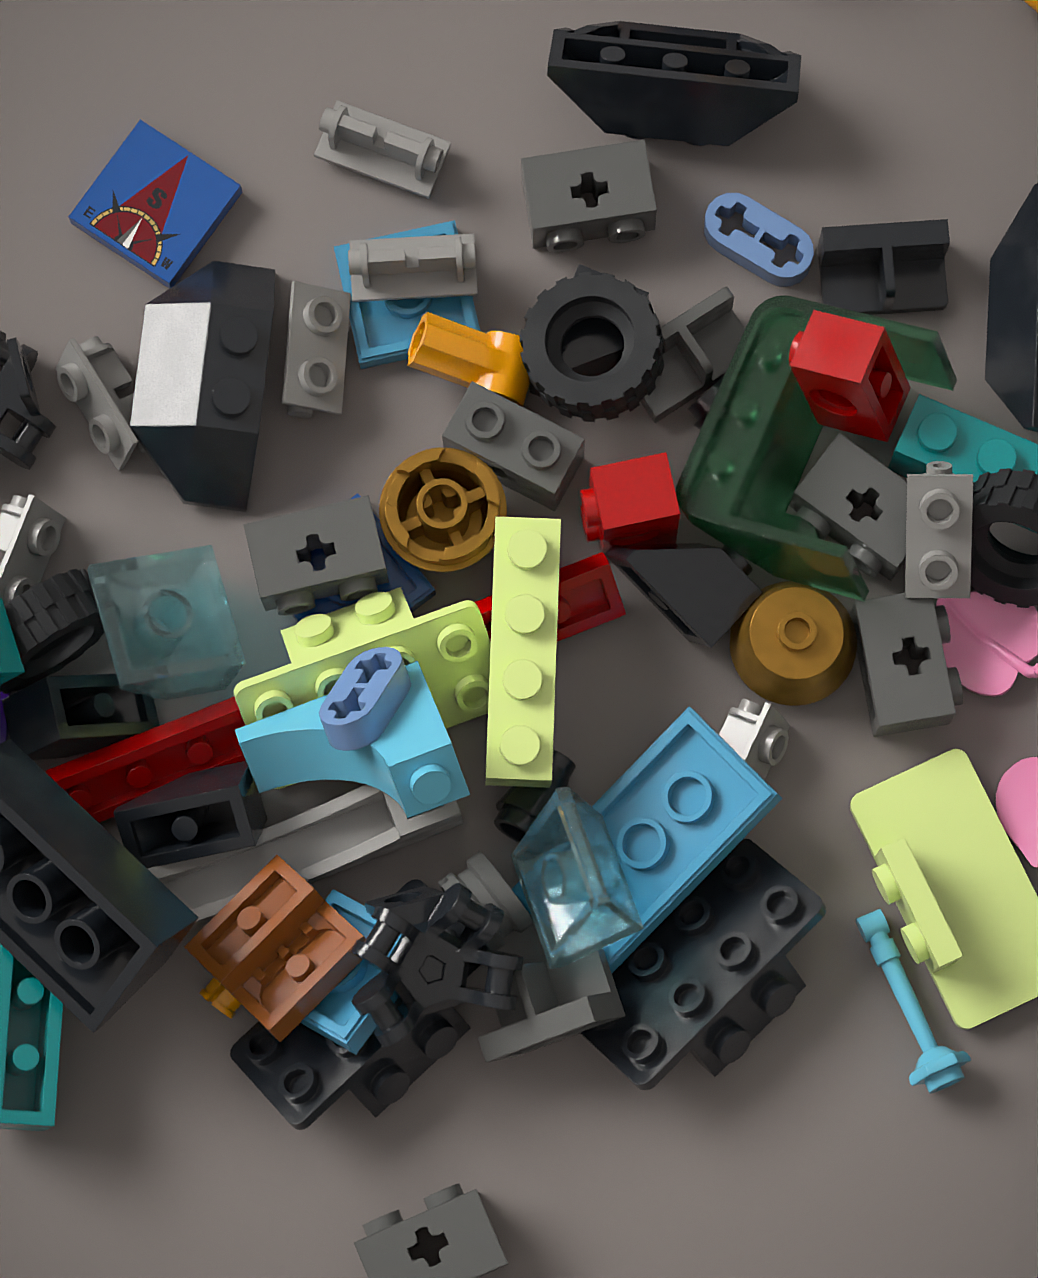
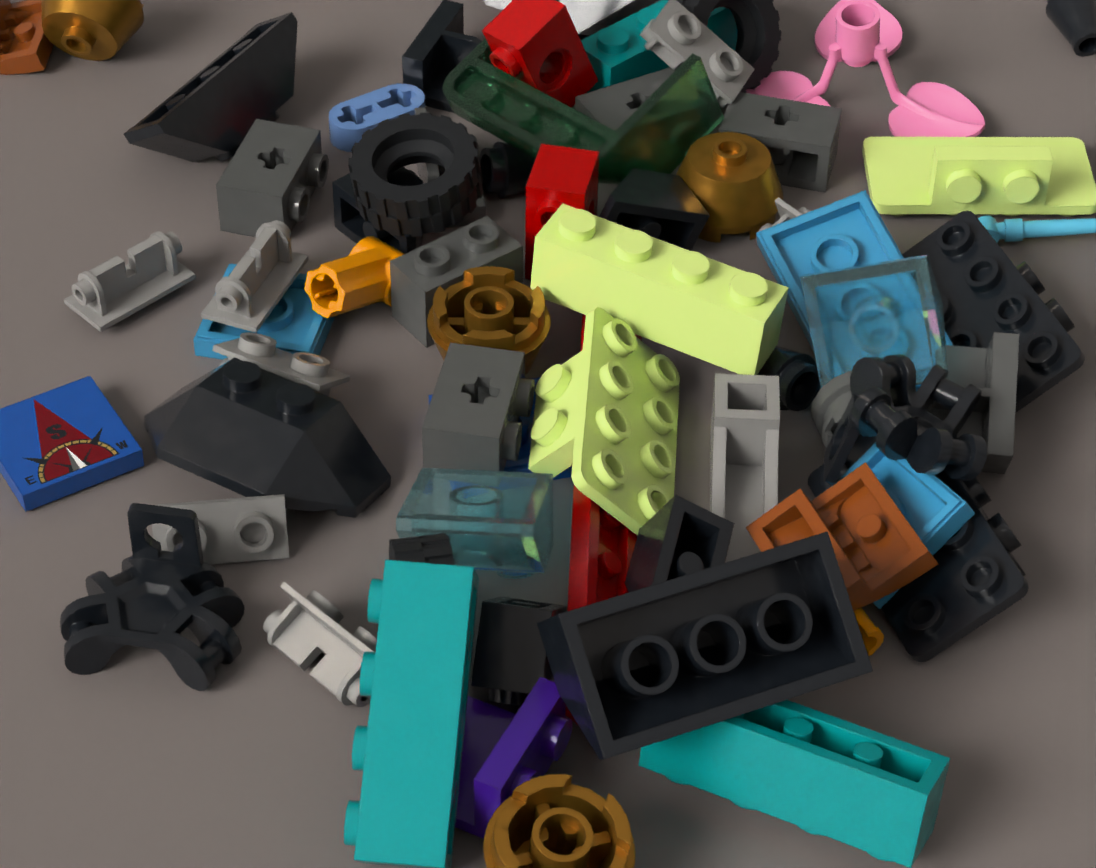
camera: 70 degrees left, 35 degrees down
(365, 698) = (649, 367): medium blue beam -> none
(408, 761) = (682, 390): medium azure arch -> none

